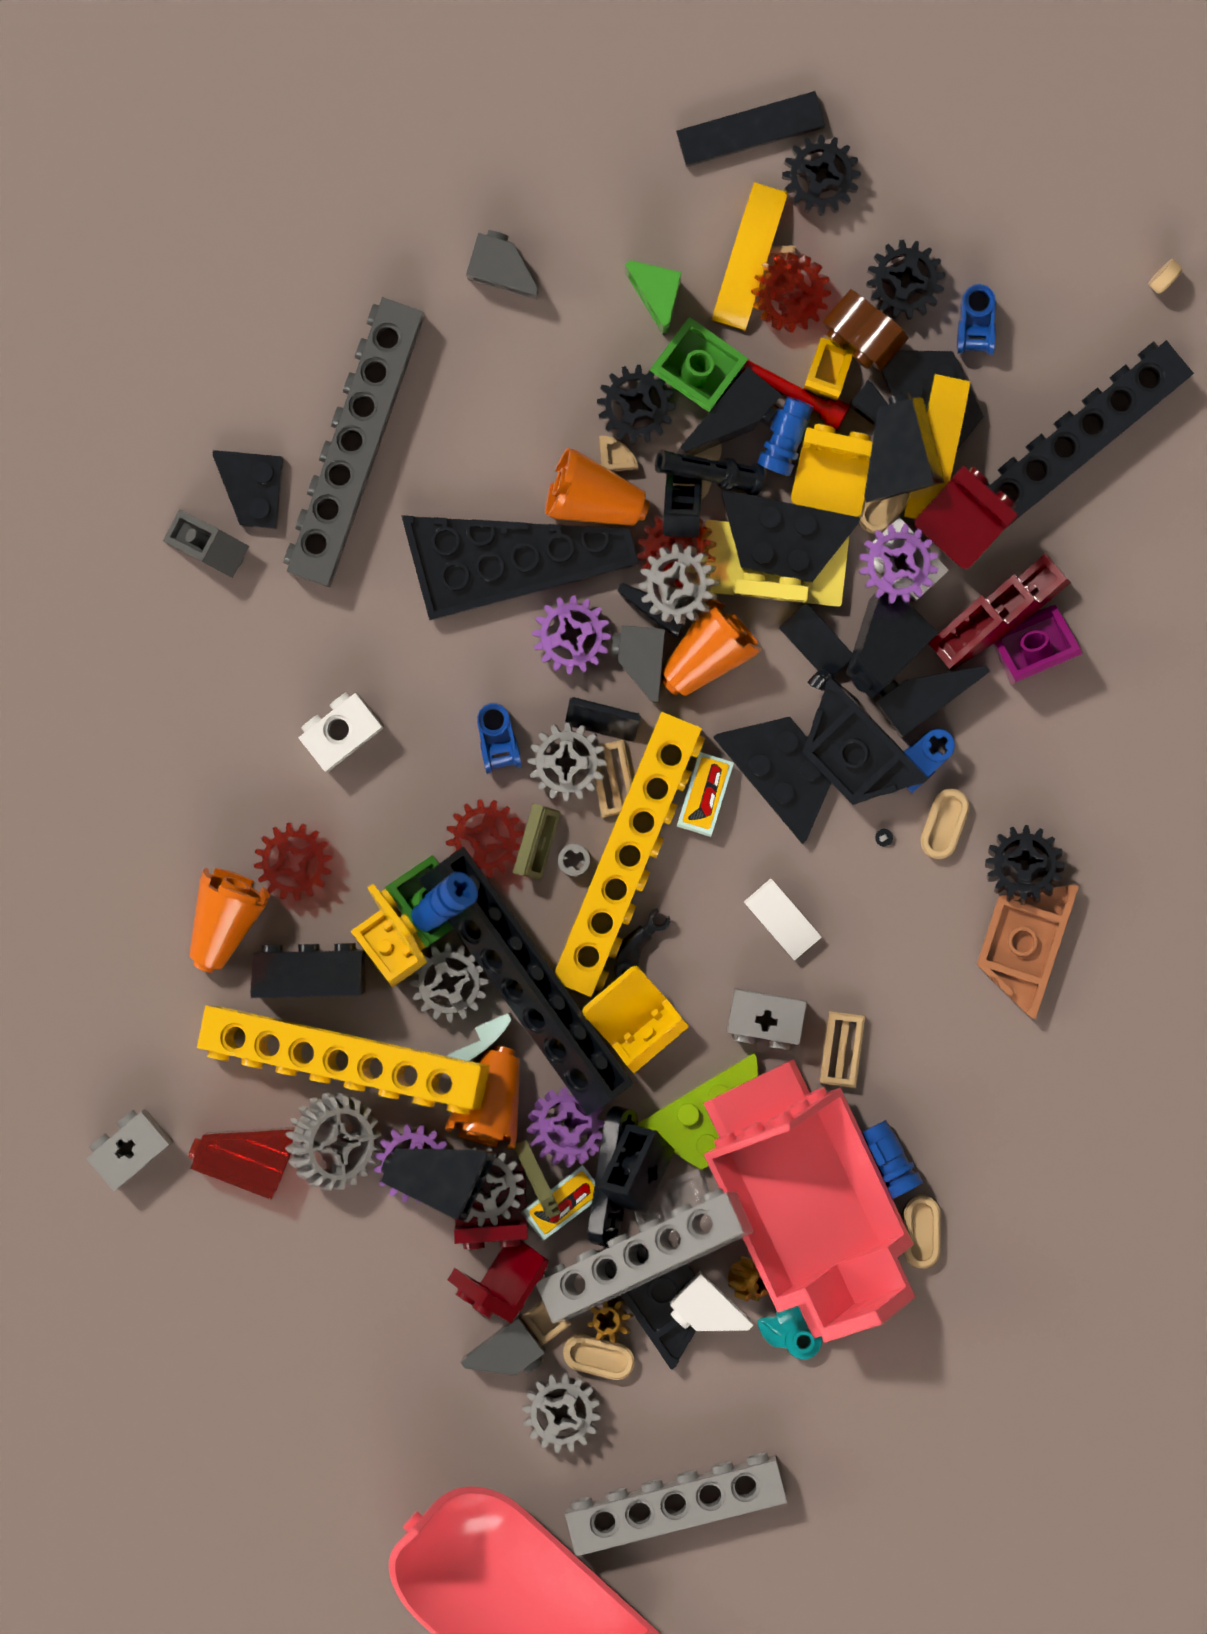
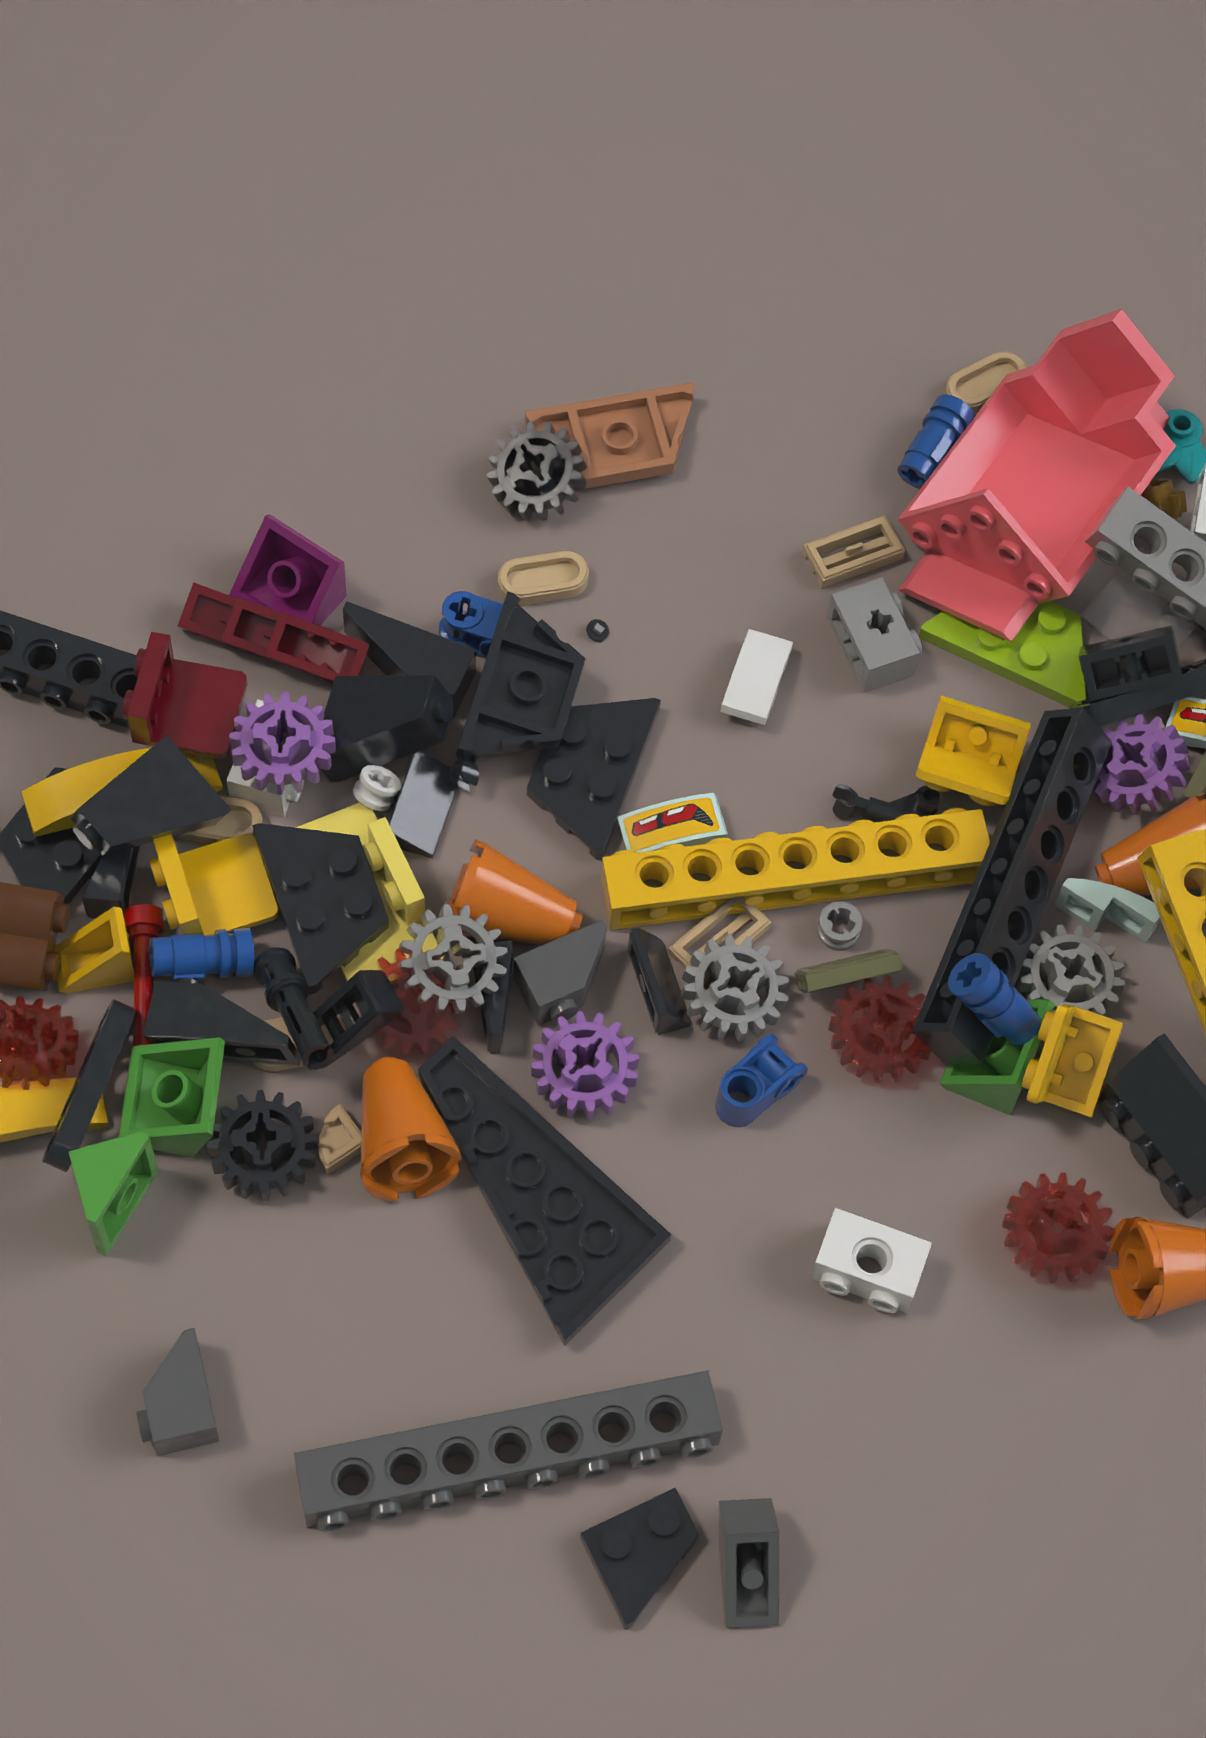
camera: 125 degrees left, 25 degrees down
(735, 317) = (89, 1085): none -> black beam
(851, 623) = (377, 788): none -> white bush

